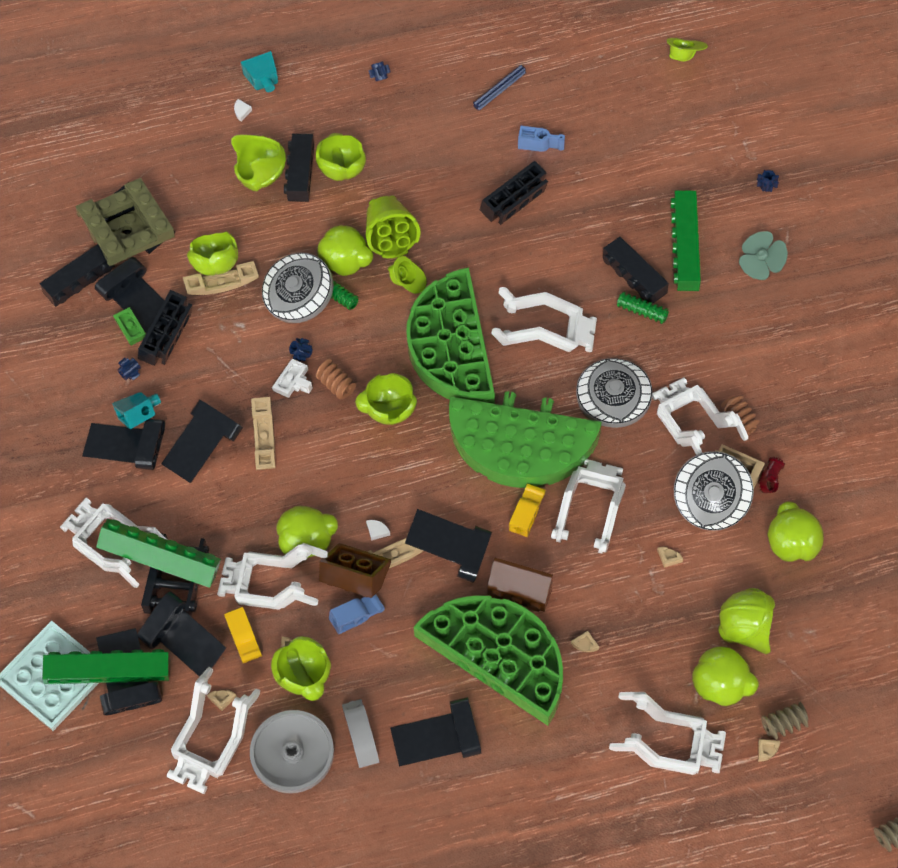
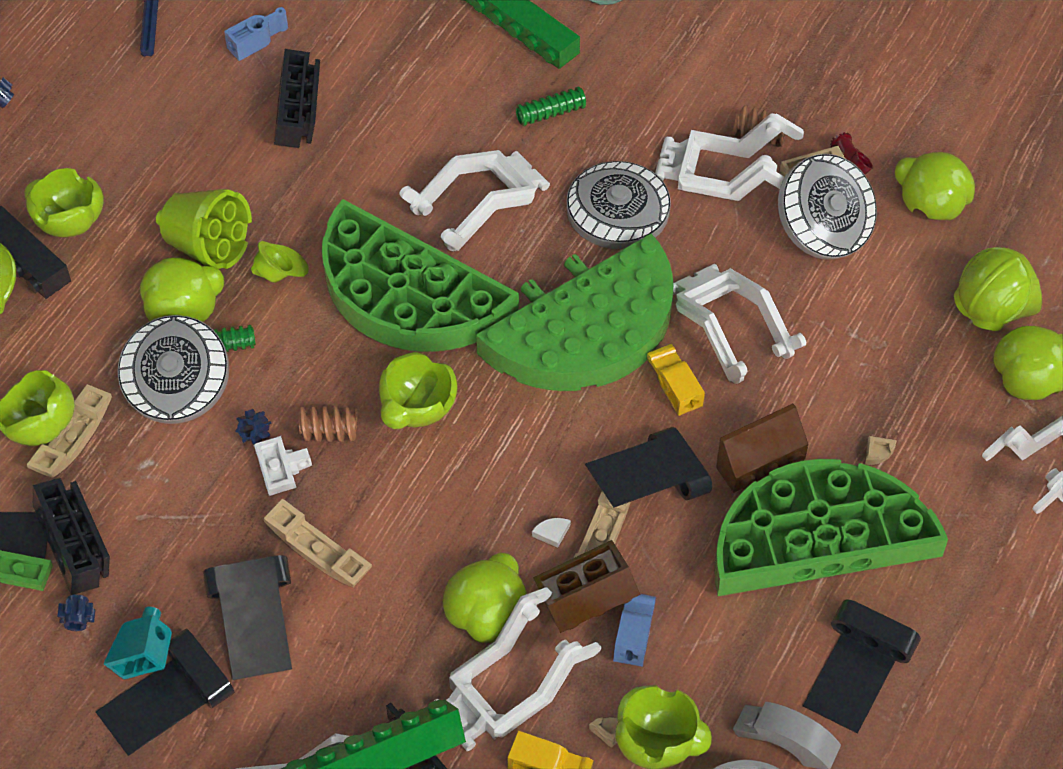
camera: 50 degrees left, 5 degrees down
(635, 270) = (501, 78): black brick -> none
(669, 556) = (852, 305): tan tile -> none

